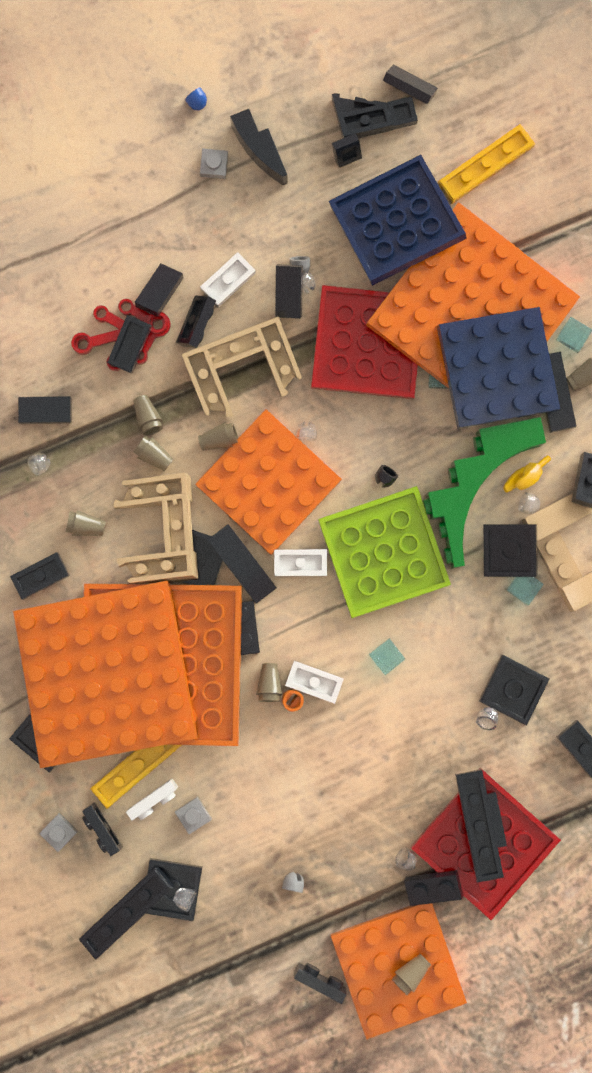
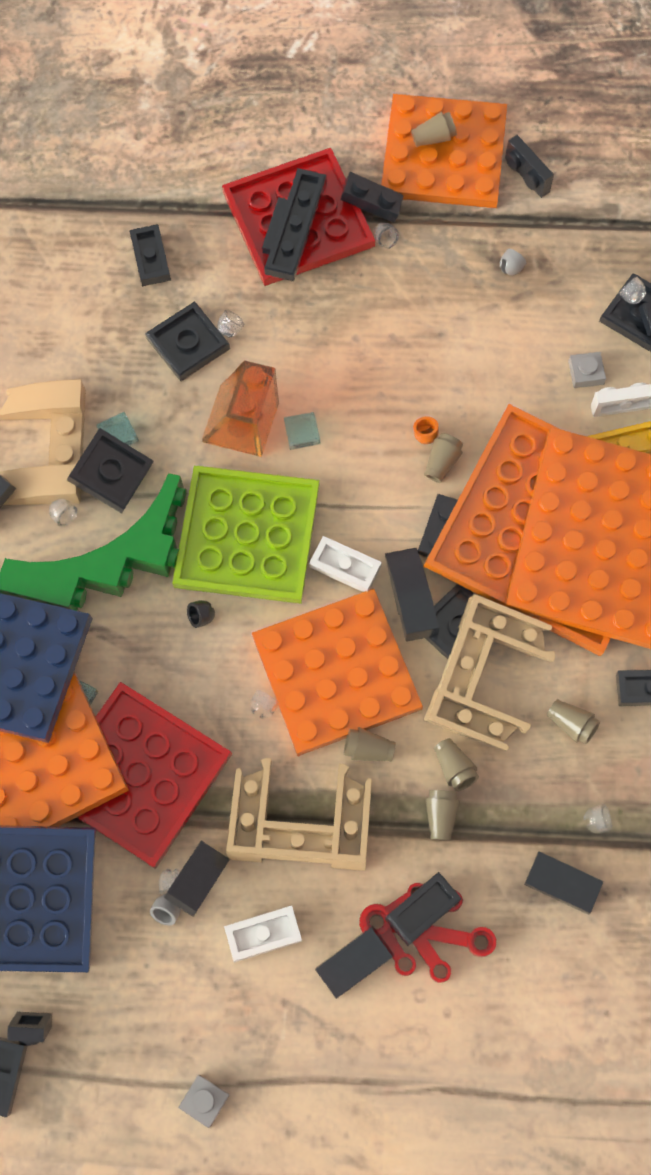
camera: 145 degrees left, 15 degrees down
(196, 321) = (328, 899): black plate -> none
(259, 145) = (135, 1090): black slope -> none
(314, 682) = (393, 438): white plate -> none
(437, 644) = (244, 409): none -> clear orange slope
(526, 476) = (44, 540): yellow hand -> none

